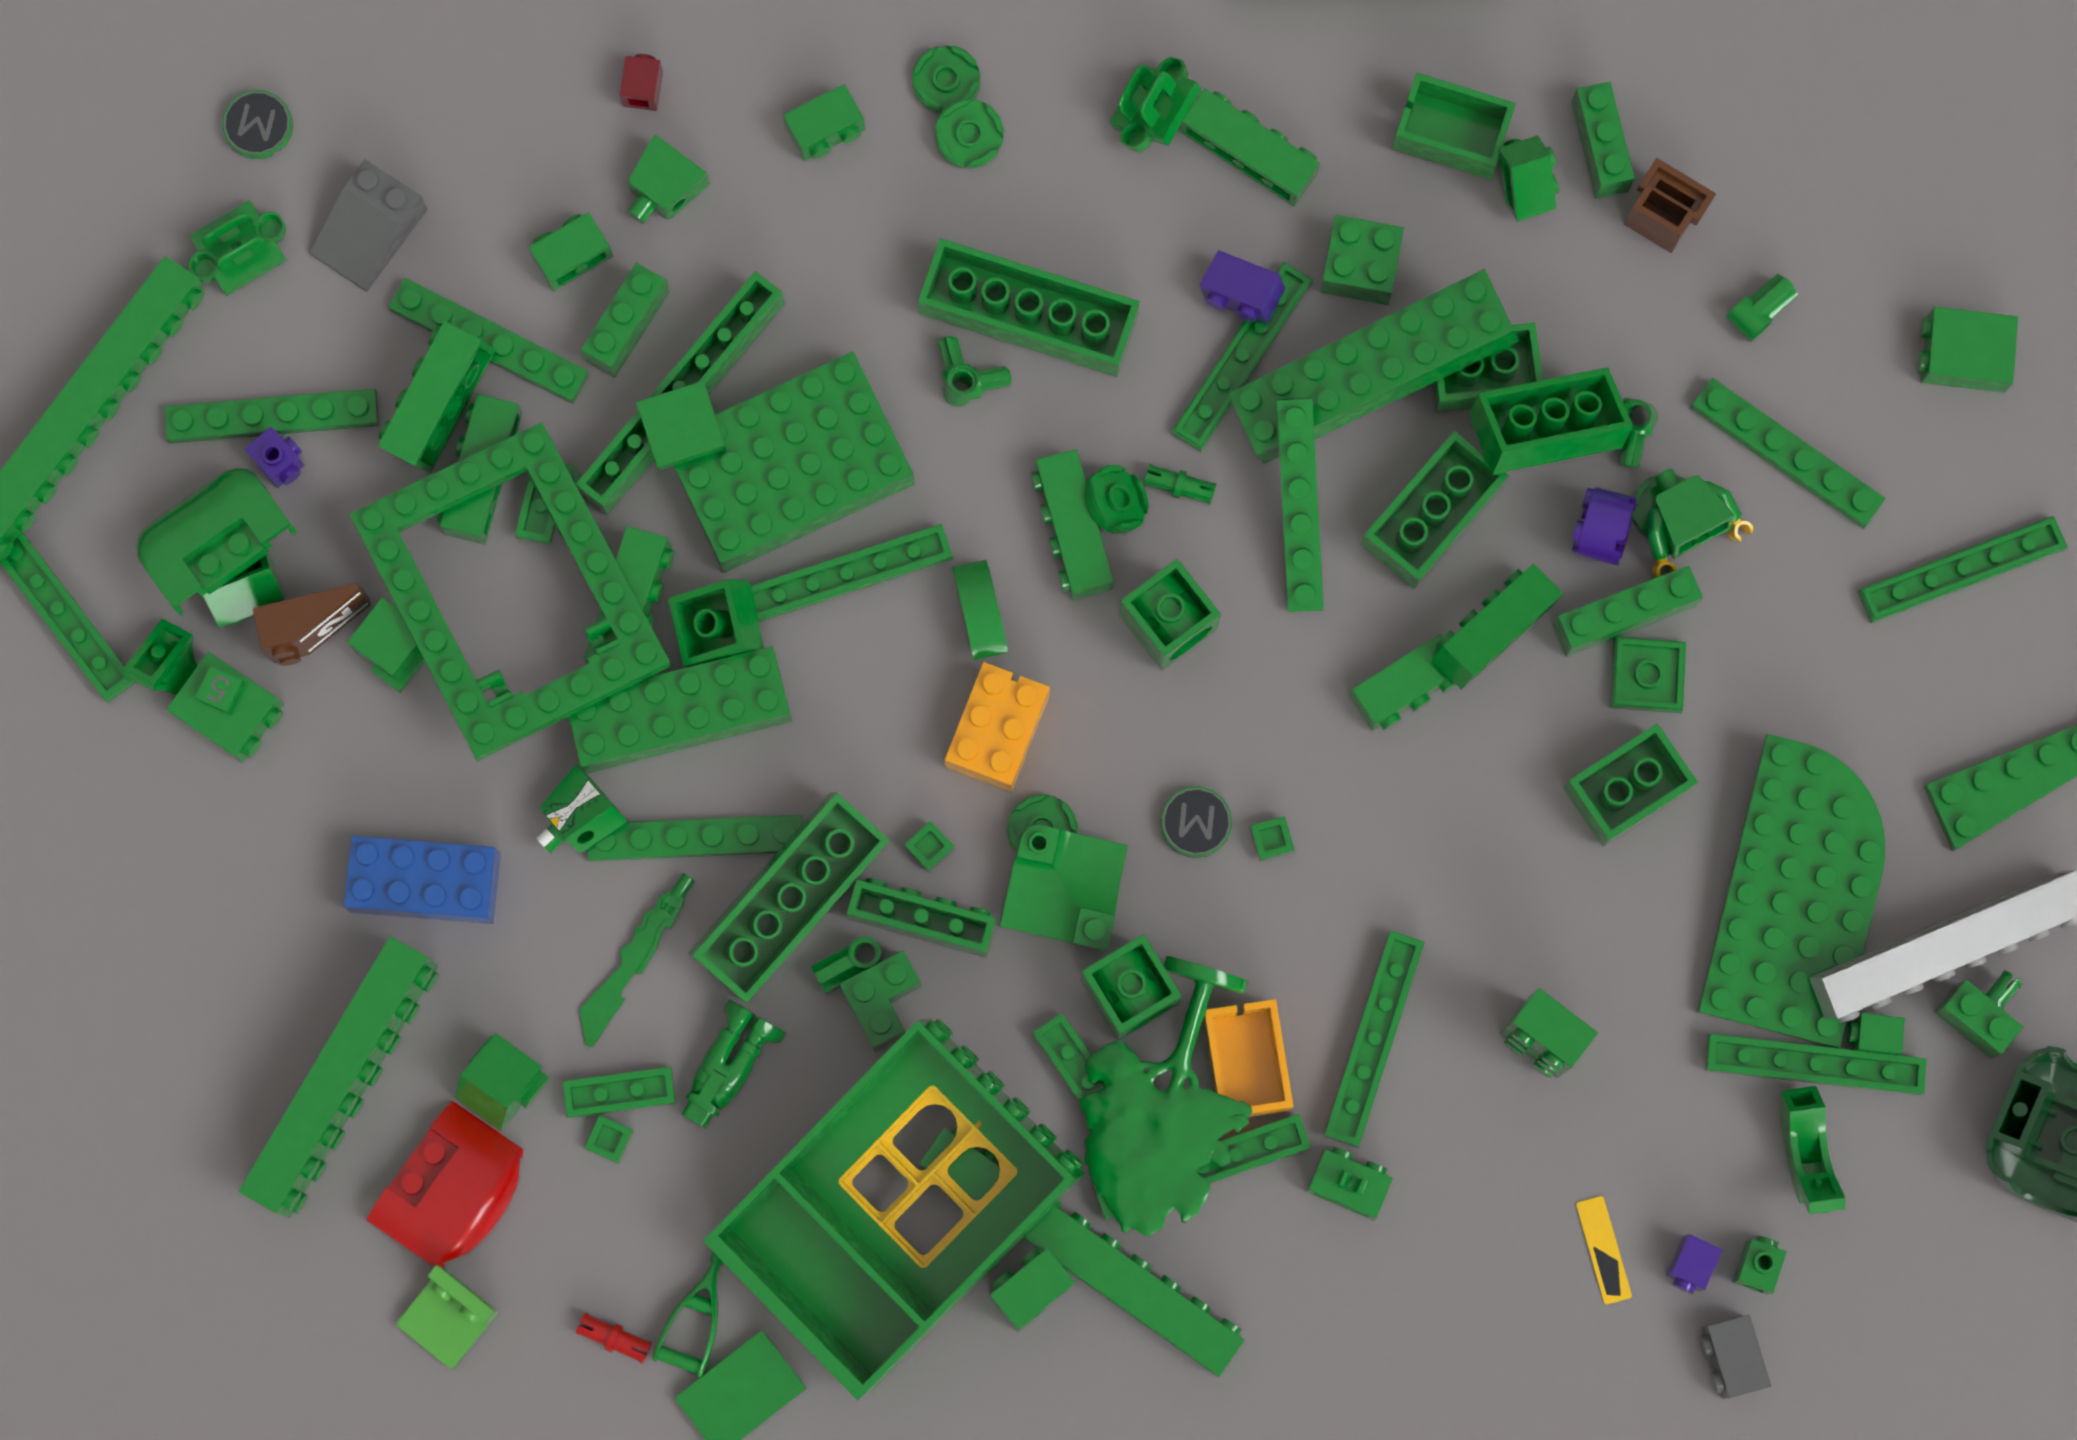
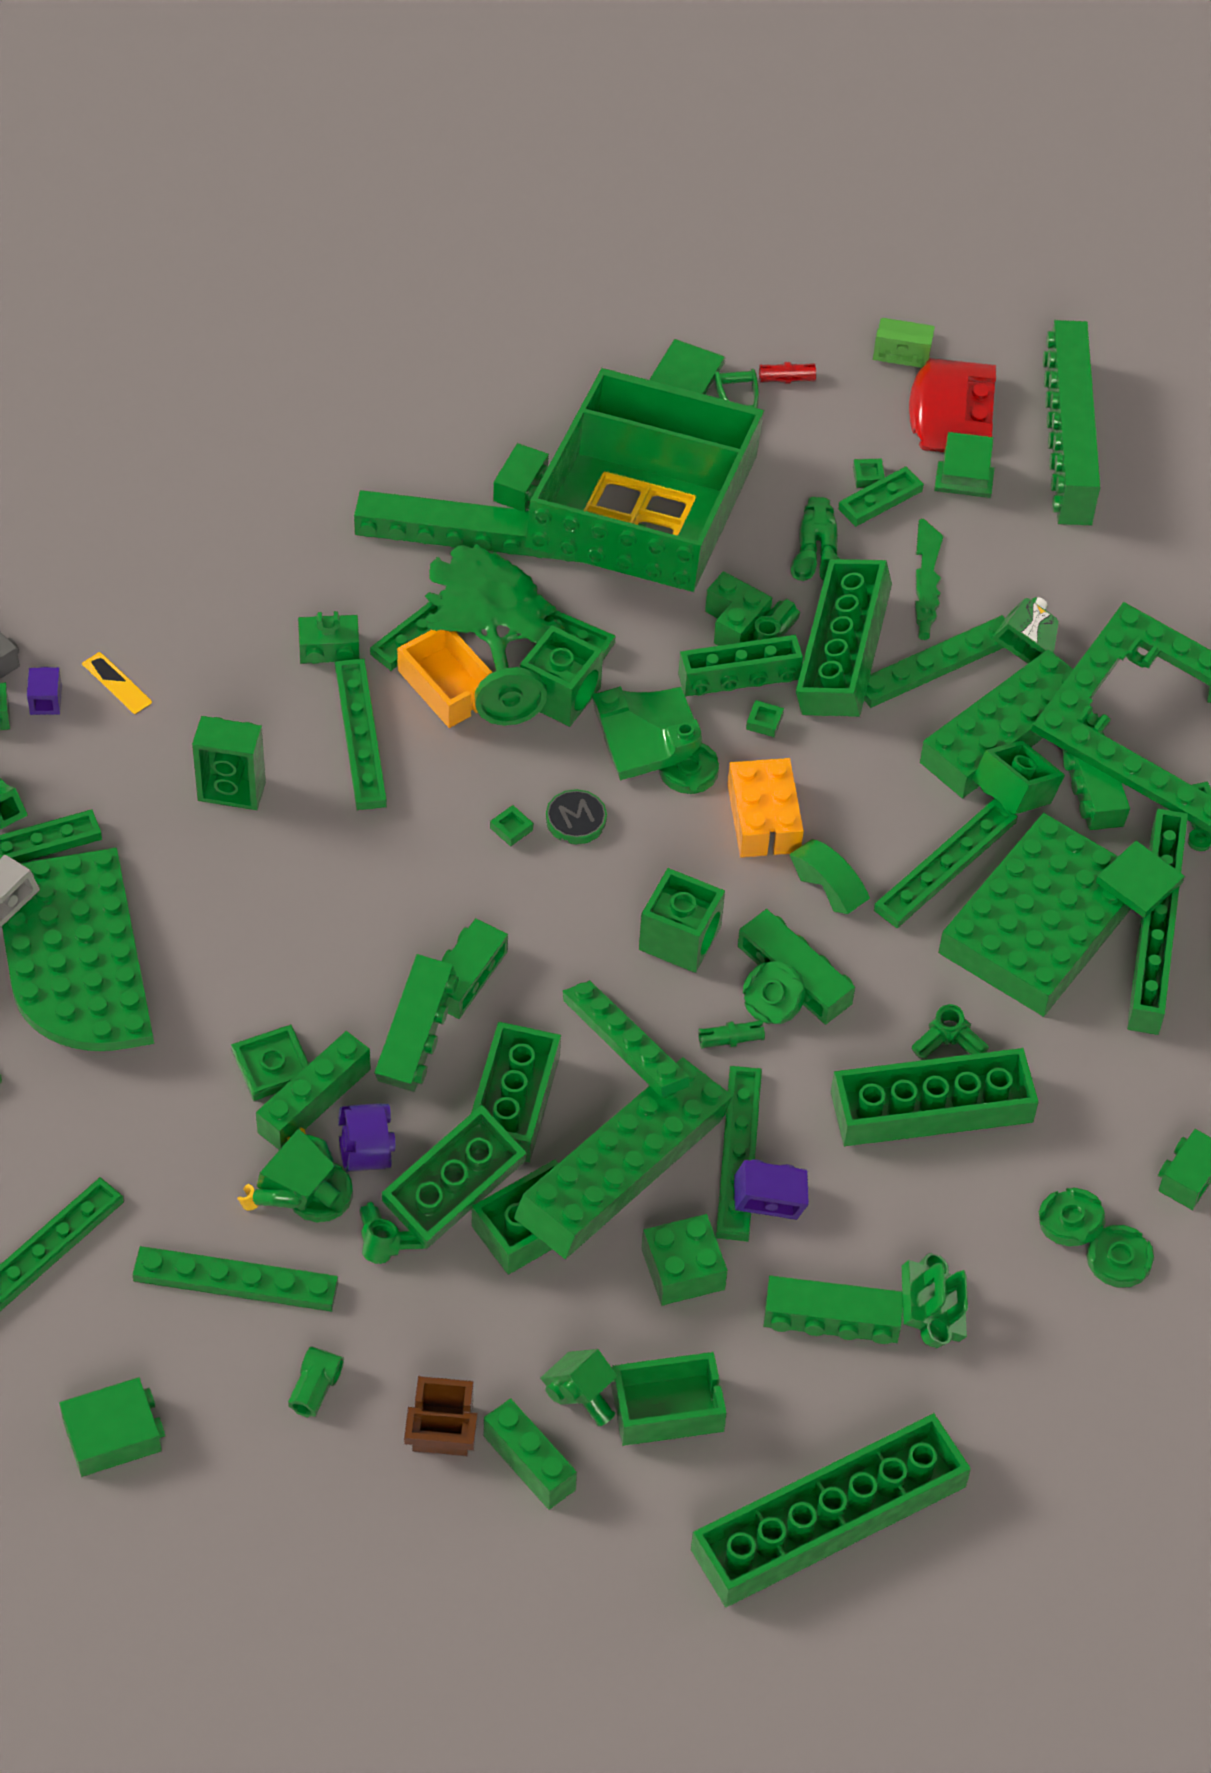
camera: 150 degrees right, 25 degrees down
(422, 879) = (1105, 554): blue brick -> none
(1630, 784) = (248, 965): green brick -> none

